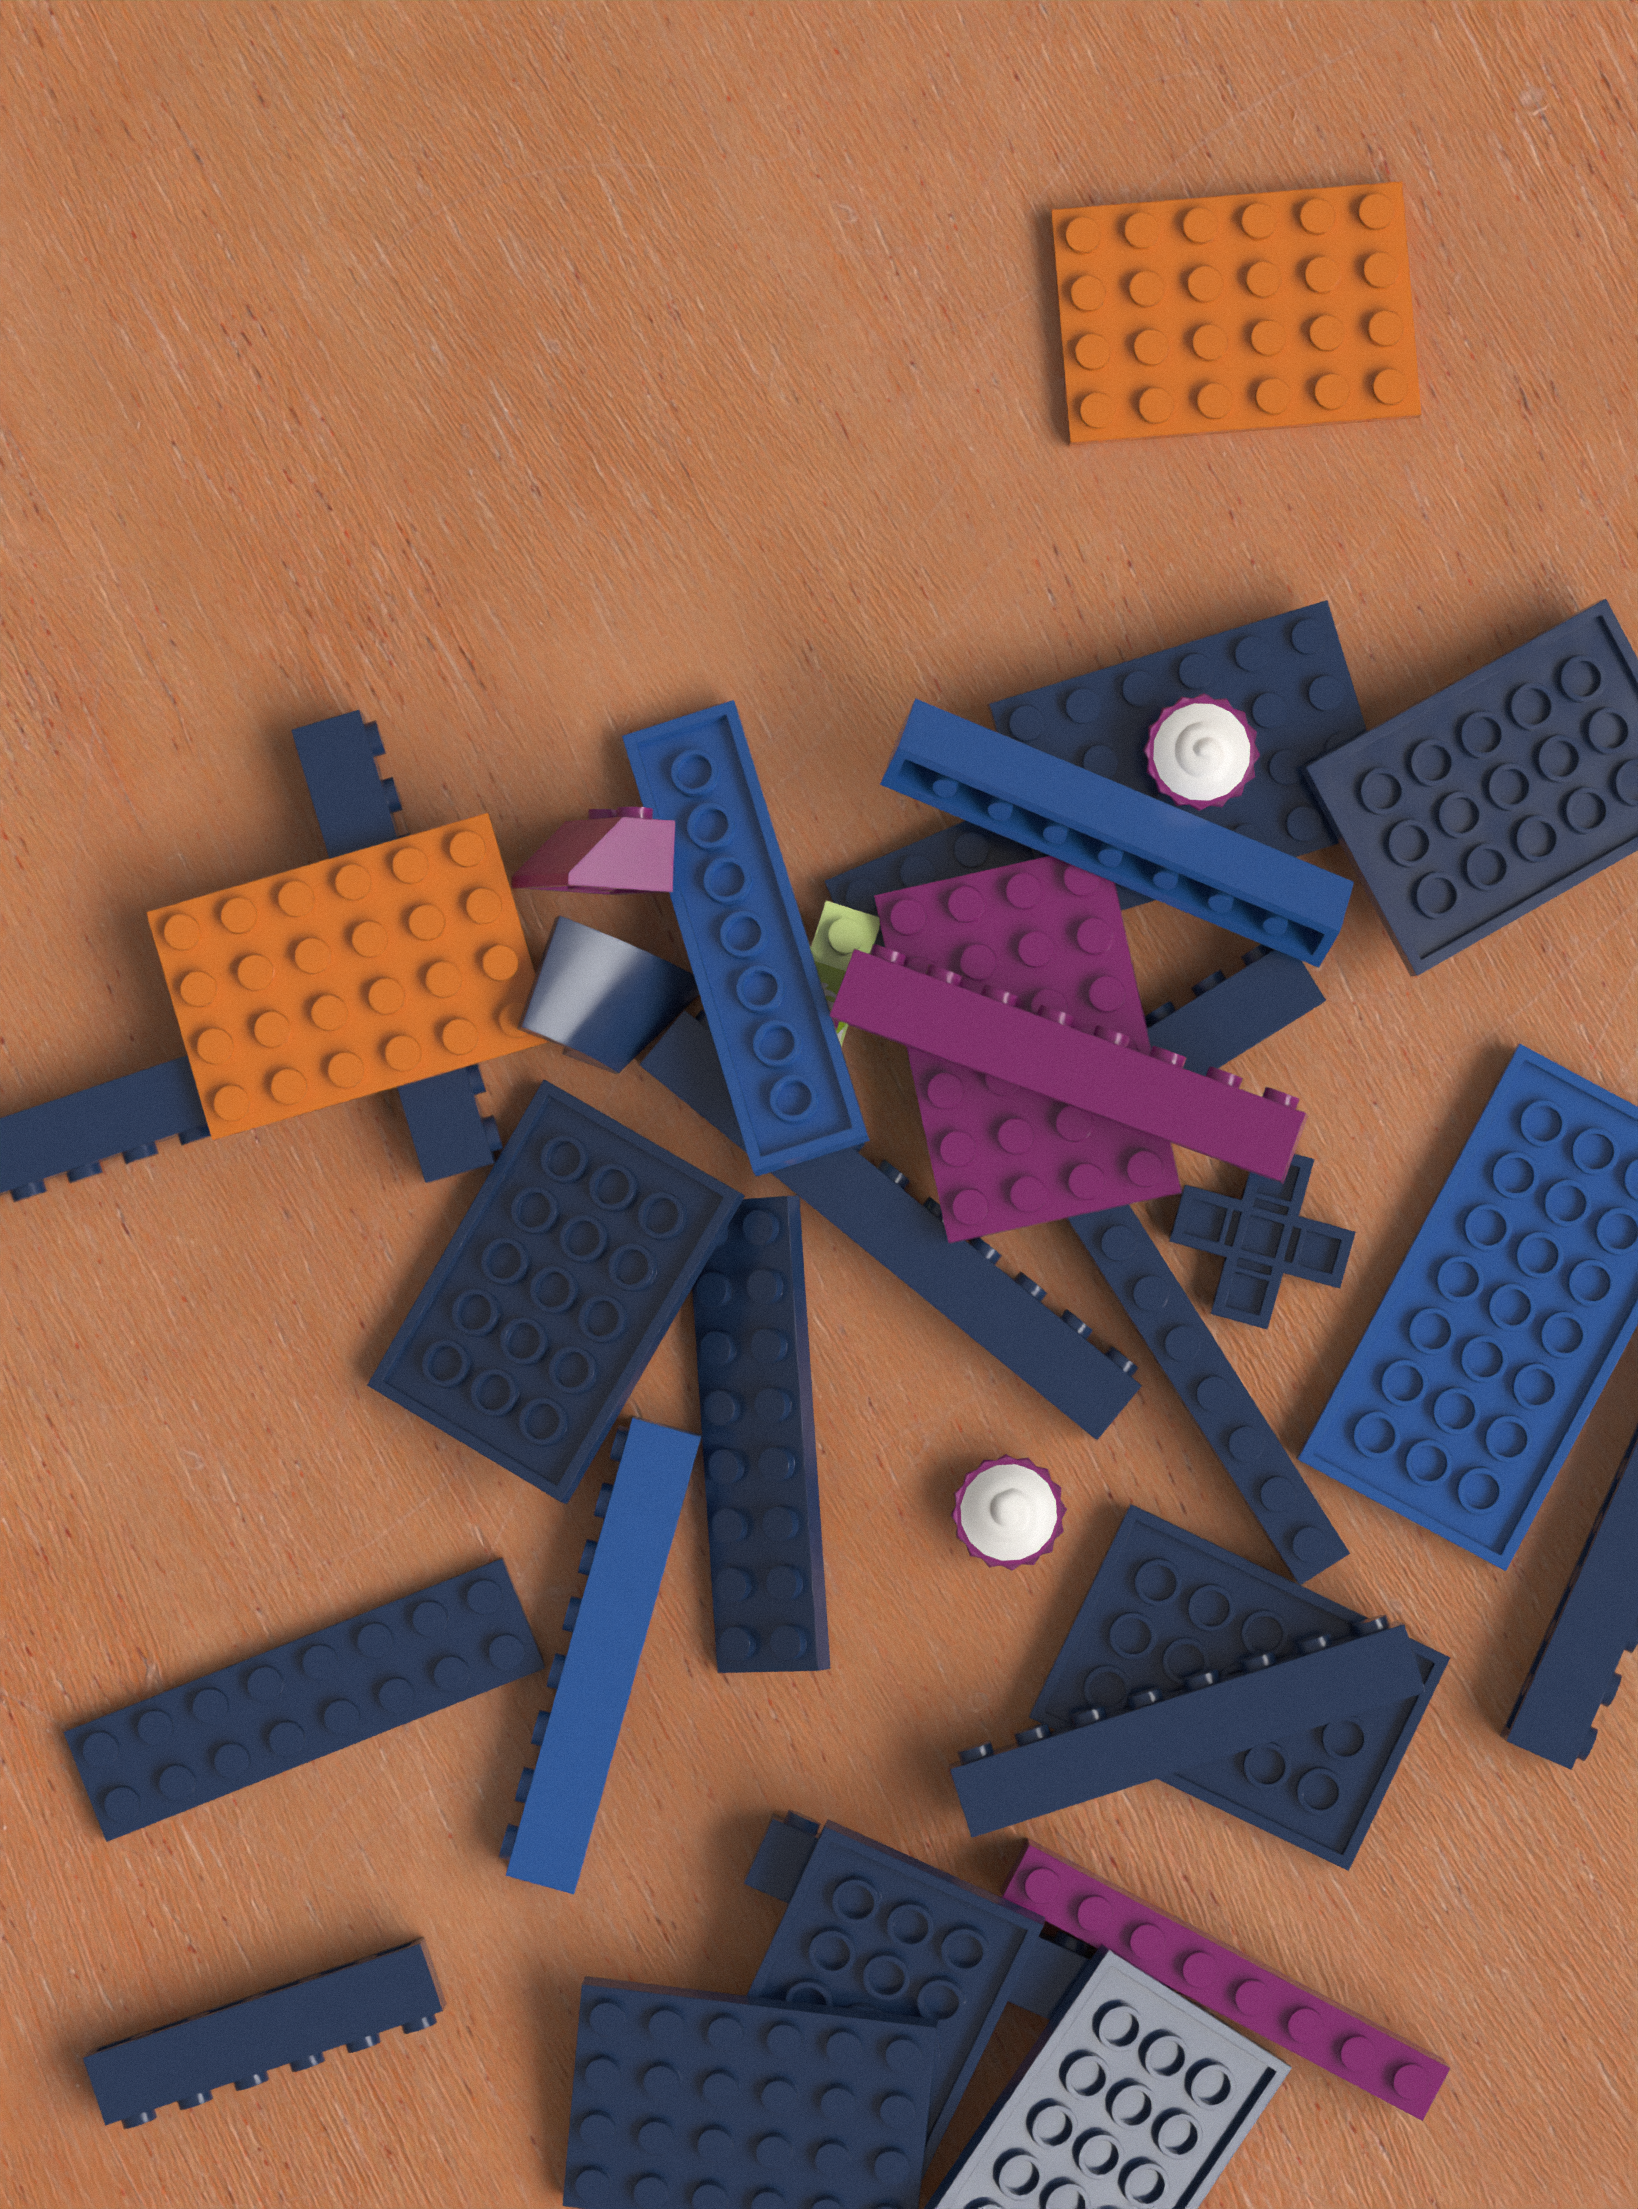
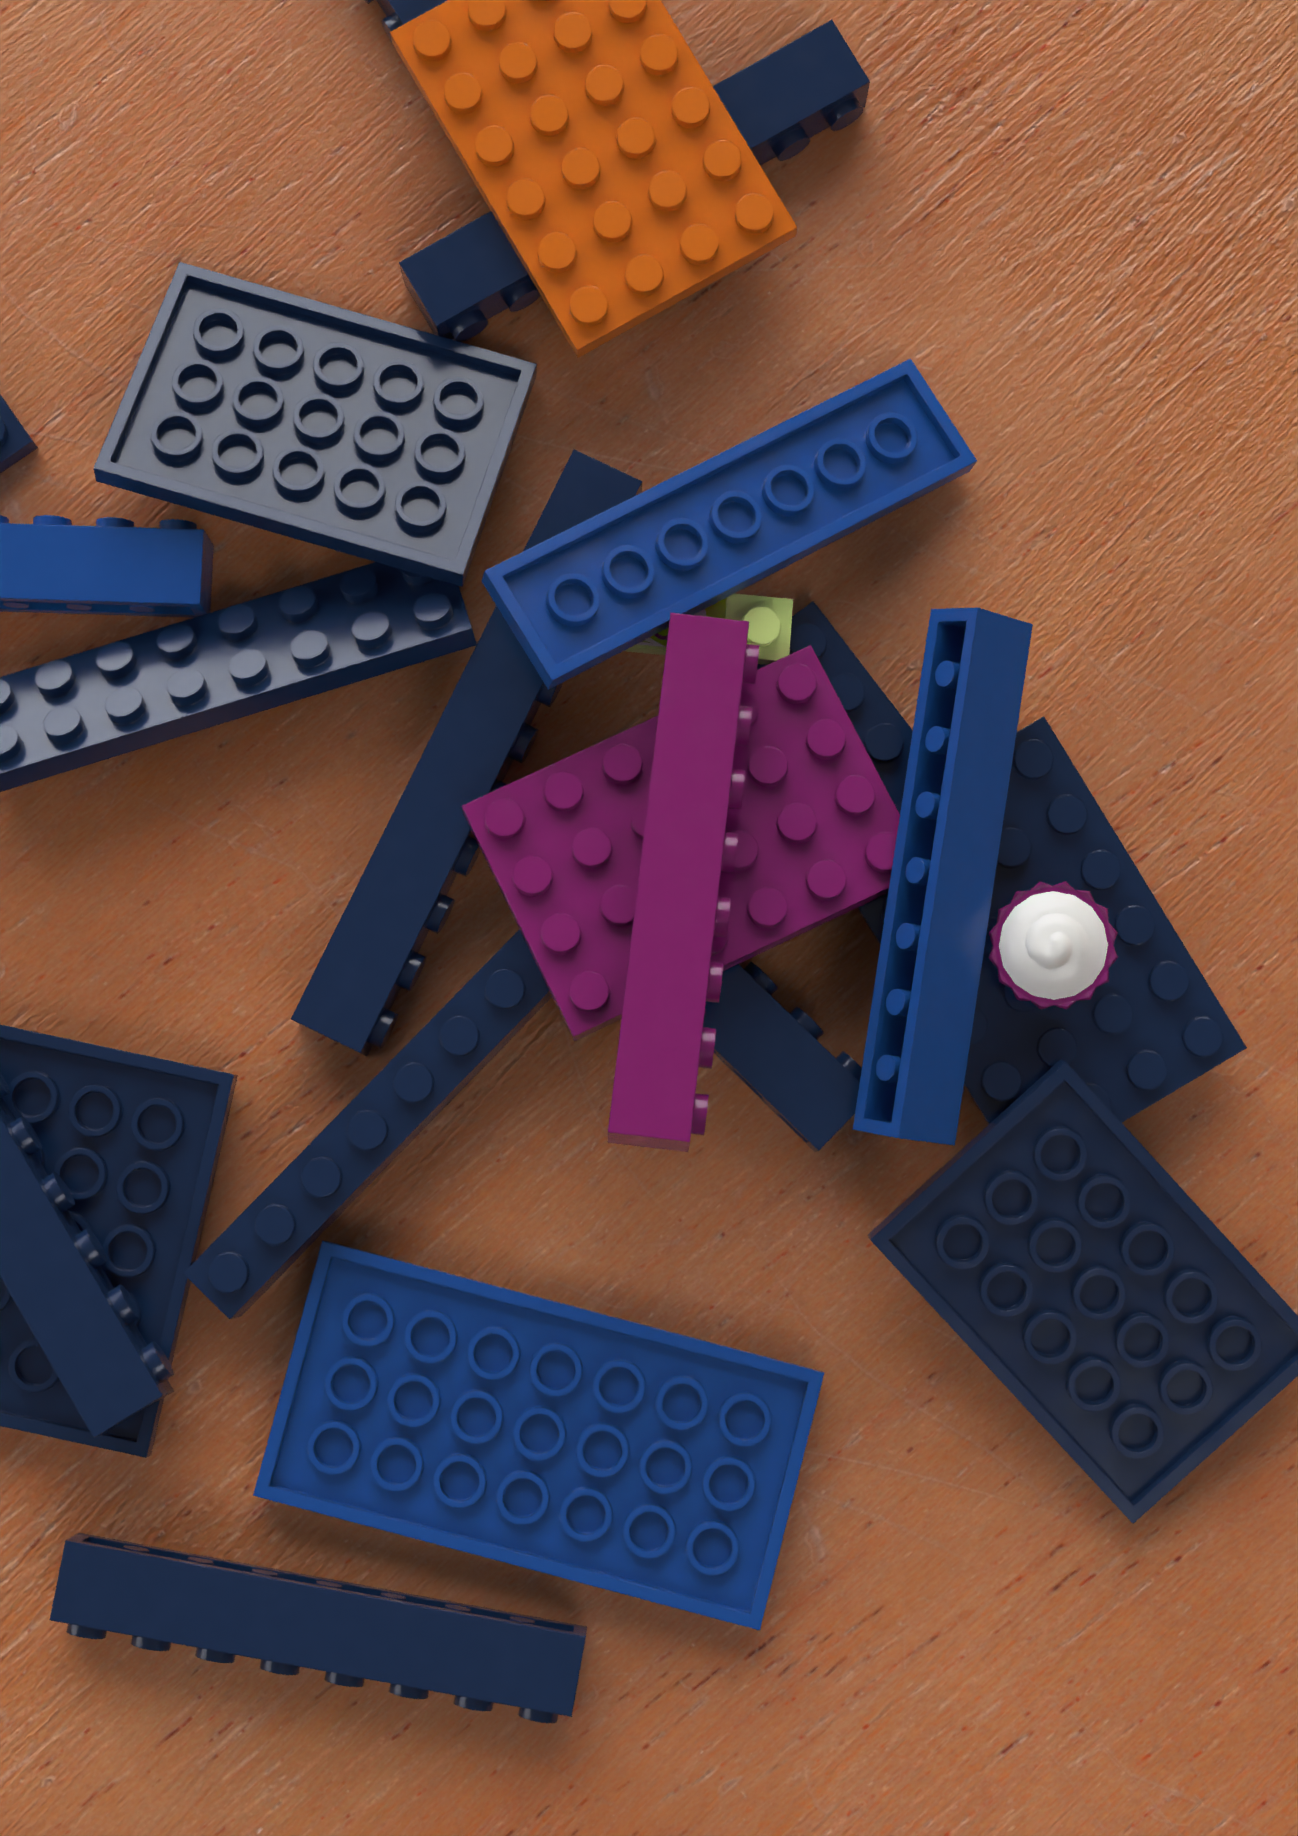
camera: 75 degrees right, 5 degrees down
(602, 996) = (634, 389): dark blue slope -> none
(604, 855) = (781, 359): magenta slope -> none
(1008, 1512) = (195, 946): white piece -> none
(1261, 1241) = (546, 1147): dark blue plate -> none

